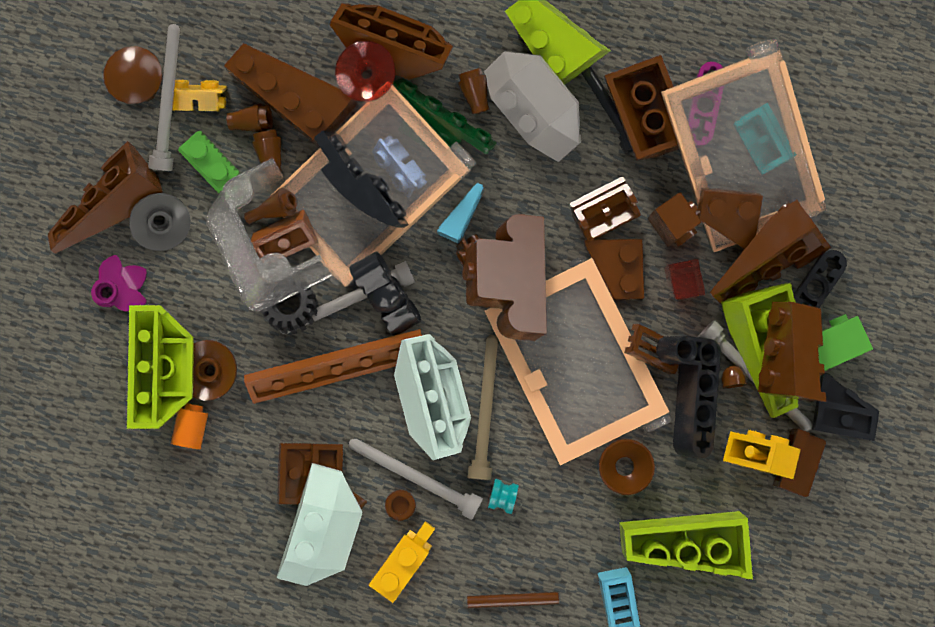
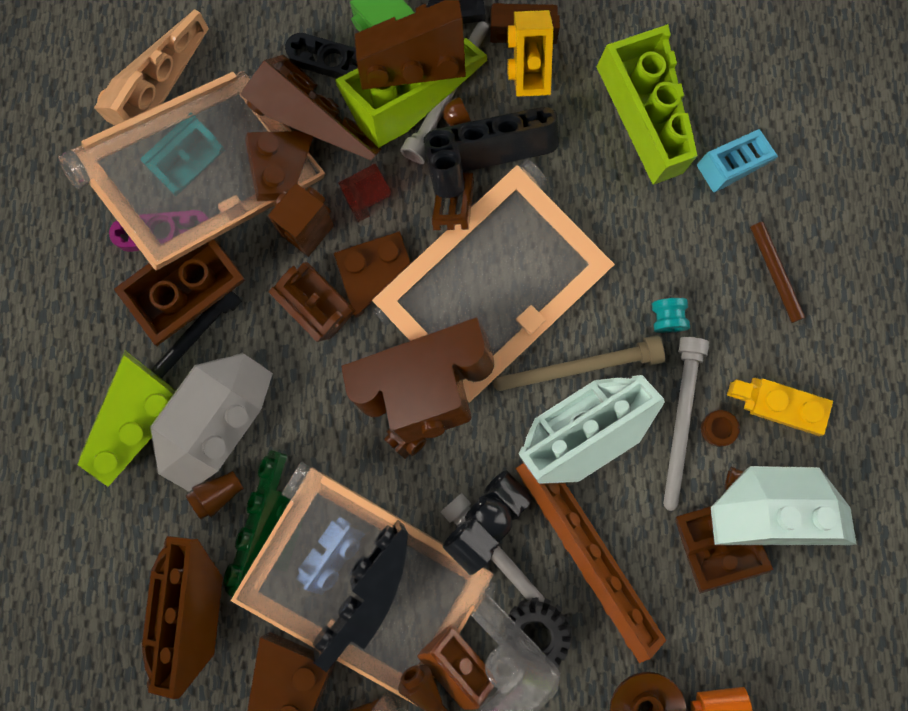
camera: 100 degrees left, 5 degrees down
(352, 64) = (214, 649): clear red dish -> none
(459, 219) = (375, 464): medium azure slope -> none
(642, 467) = (596, 177): reddish brown piece -> none
(837, 123) = (153, 74): none -> light nougat wedge

